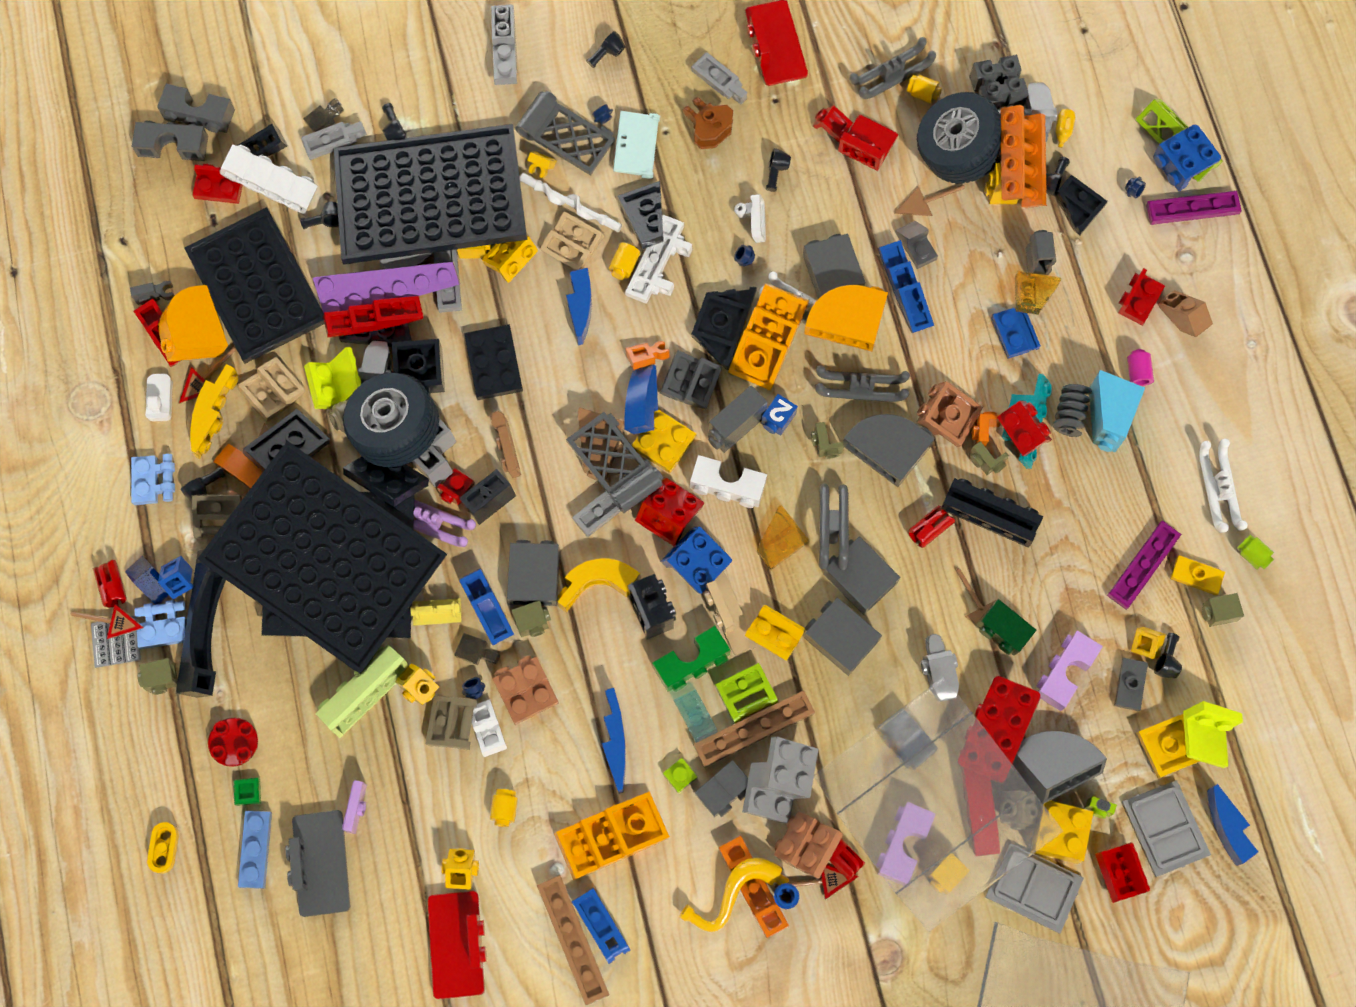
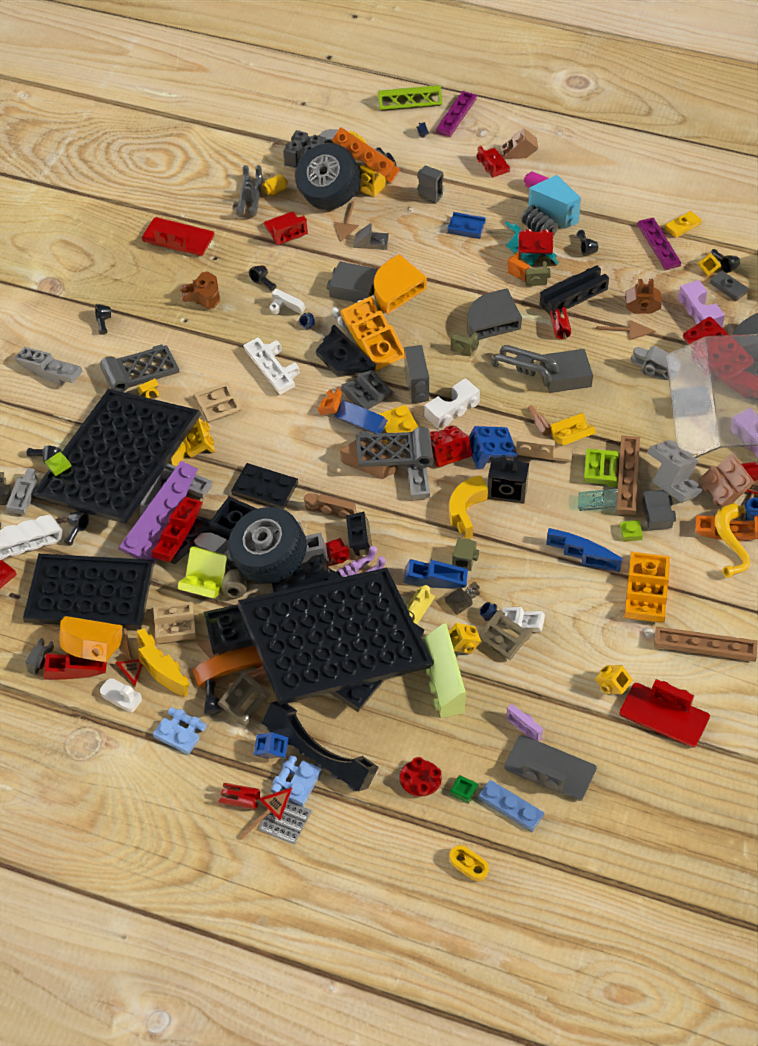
camera: 55 degrees left, 20 degrees down
(146, 579) = (255, 770): clear blue slope -> none
(158, 676) = (336, 799): olive brick -> none
(381, 146) = (57, 463): none -> lime plate
(504, 807) = (586, 635): yellow brick -> none
(525, 689) = (510, 584): nougat plate -> none
(533, 573) = (433, 536): dark grey brick -> none
(571, 200) = (193, 385): white piece -> none
(580, 303) = (266, 417): blue slope -> none
(600, 924) = (706, 623): blue plate -> none
(602, 114) = (145, 342): dark blue plate -> none
(624, 261) = (256, 380): yellow brick -> none
(637, 151) = (181, 336): light aqua door -> none
(644, 213) = (234, 353): wing -> none
(675, 673) = (558, 495): green arch -> none
(719, 78) = (176, 273): light grey hinge -> none
(770, 588) = (540, 421): none -> nougat axle
(778, 415) = (432, 356): blue brick -> none
(781, 539) = (510, 399): clear yellow wing -> none
(833, 122) = (257, 234): red bracket -> none
(841, 635) = (600, 399): dark grey brick -> none
(861, 385) = (442, 309): dark grey piece -> none
(905, 286) = (382, 255): blue slope -> none
(948, 413) = (494, 276): nougat plate -> none
(1005, 628) = (652, 319): dark green brick -> none
(1031, 598) = (644, 297): none -> dark orange hinge
(1033, 291) = (449, 202): clear yellow wing -> none
(1077, 488) = (588, 245): none -> black bar
(1080, 203) = (411, 156): black wing -> none
(1185, 156) = (425, 98): blue bracket -> none
(1220, 487) = (637, 186): white piece -> none
(1222, 610) = (714, 220): olive brick -> none
(1255, 552) = (689, 191): lime brick -> none

